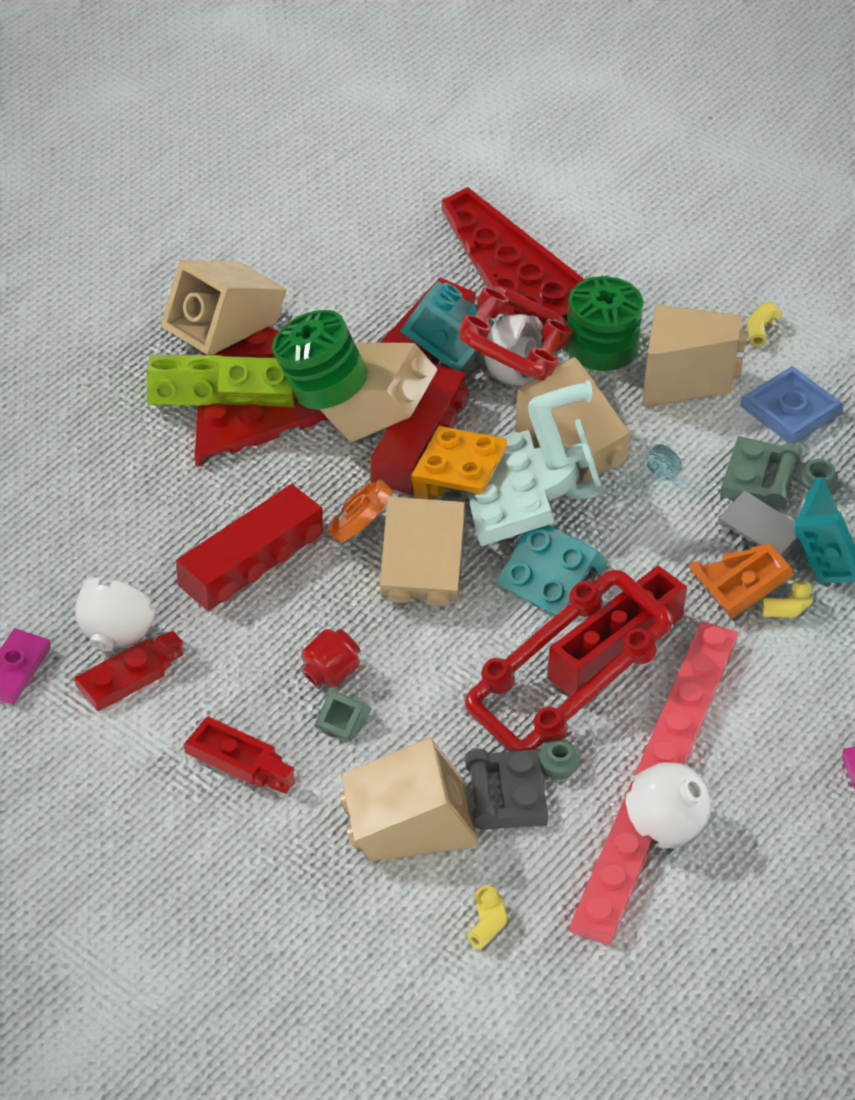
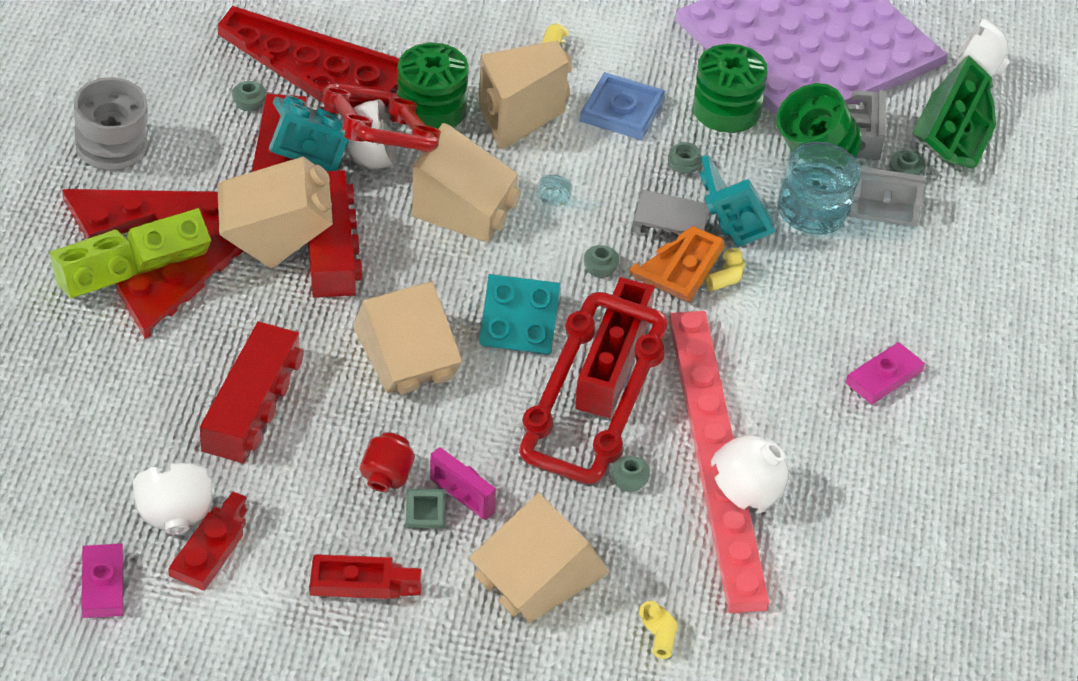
camera: 30 degrees left, 0 degrees up
(220, 303) = (86, 183): tan slope -> none
(283, 250) = (111, 123): none -> light grey wheel
(320, 359) = (232, 199): green wheel -> none
(359, 510) = (332, 324): orange tile -> none
(388, 705) = (462, 483): none -> dark pink plate
(428, 273) = (249, 95): none -> sand green plate
(457, 462) = (392, 249): light orange bracket -> none
(519, 785) = (611, 508): dark grey plate -> none
(531, 477) = (461, 247): light aqua plate -> none
(667, 546) = (601, 261): none -> sand green plate
(749, 468) = (624, 173): sand green plate -> none

